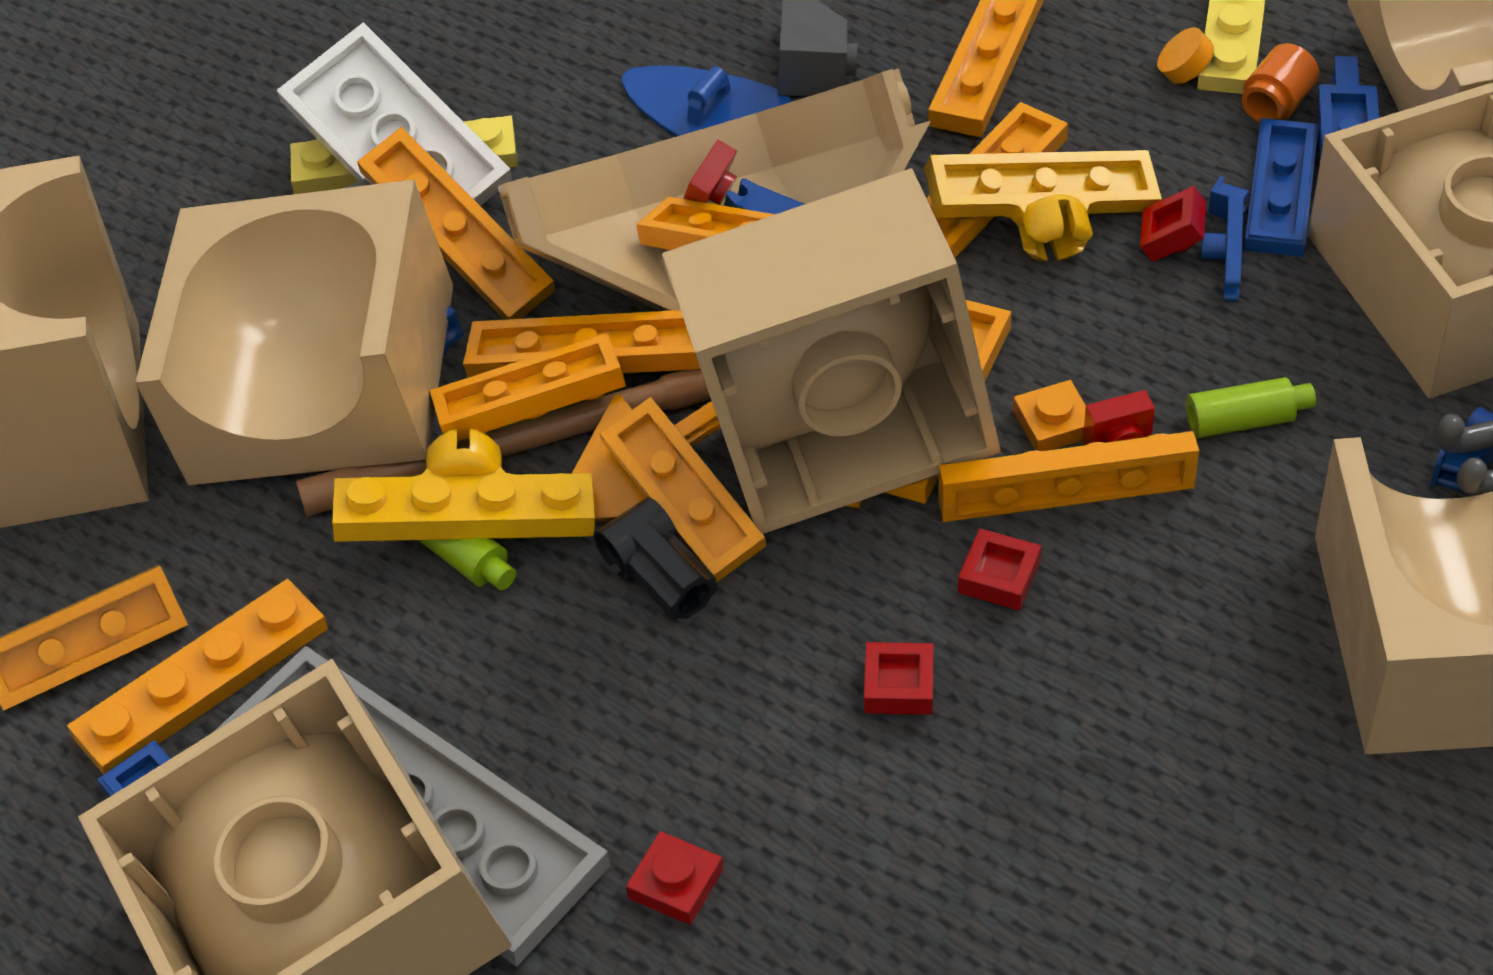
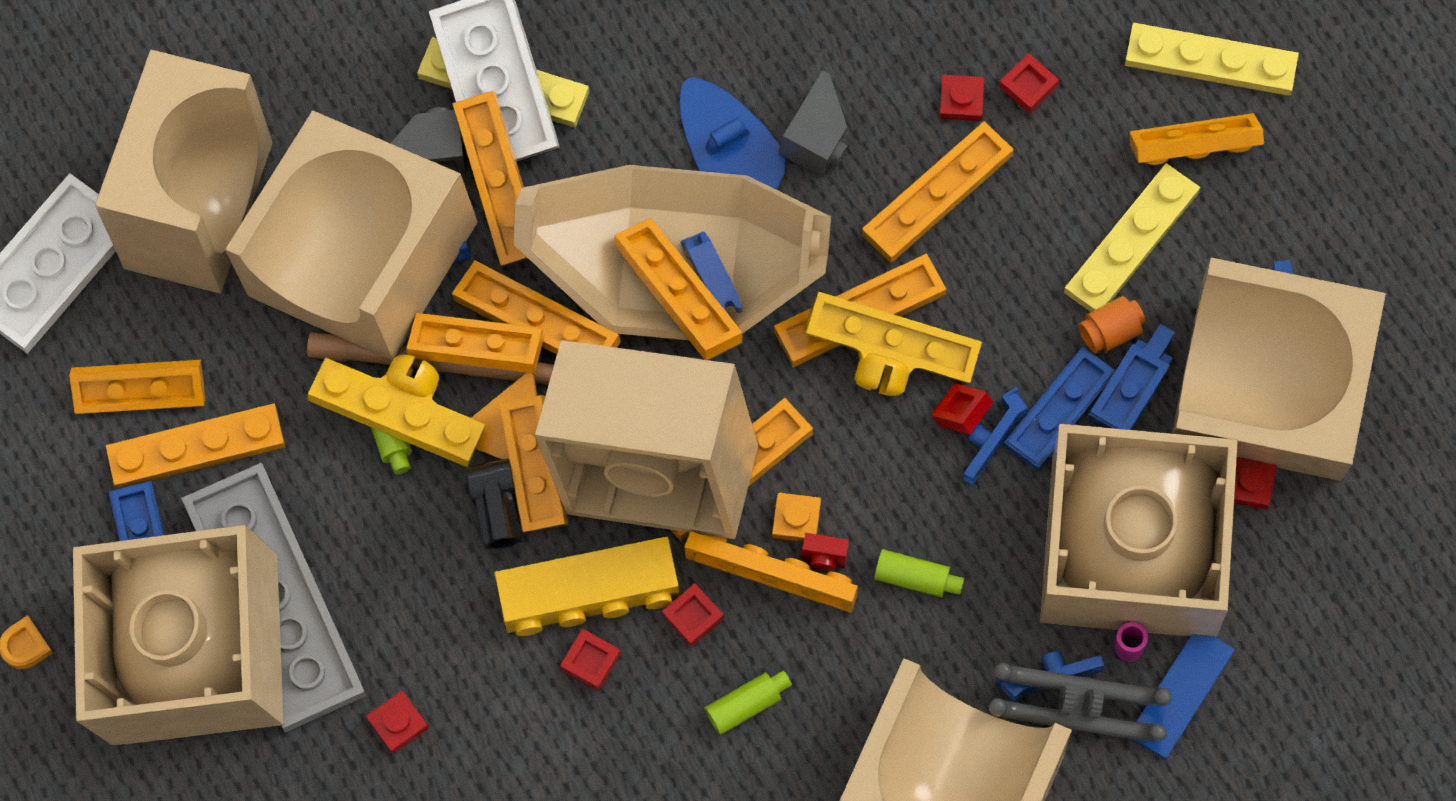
camera: 25 degrees right, 20 degrees up
(713, 176) = (682, 222): red plate -> none
(838, 594) = (587, 586): none -> yellow brick
(1137, 635) = (746, 701): none -> lime cylinder
(1185, 55) = (1065, 266): light orange tile -> none

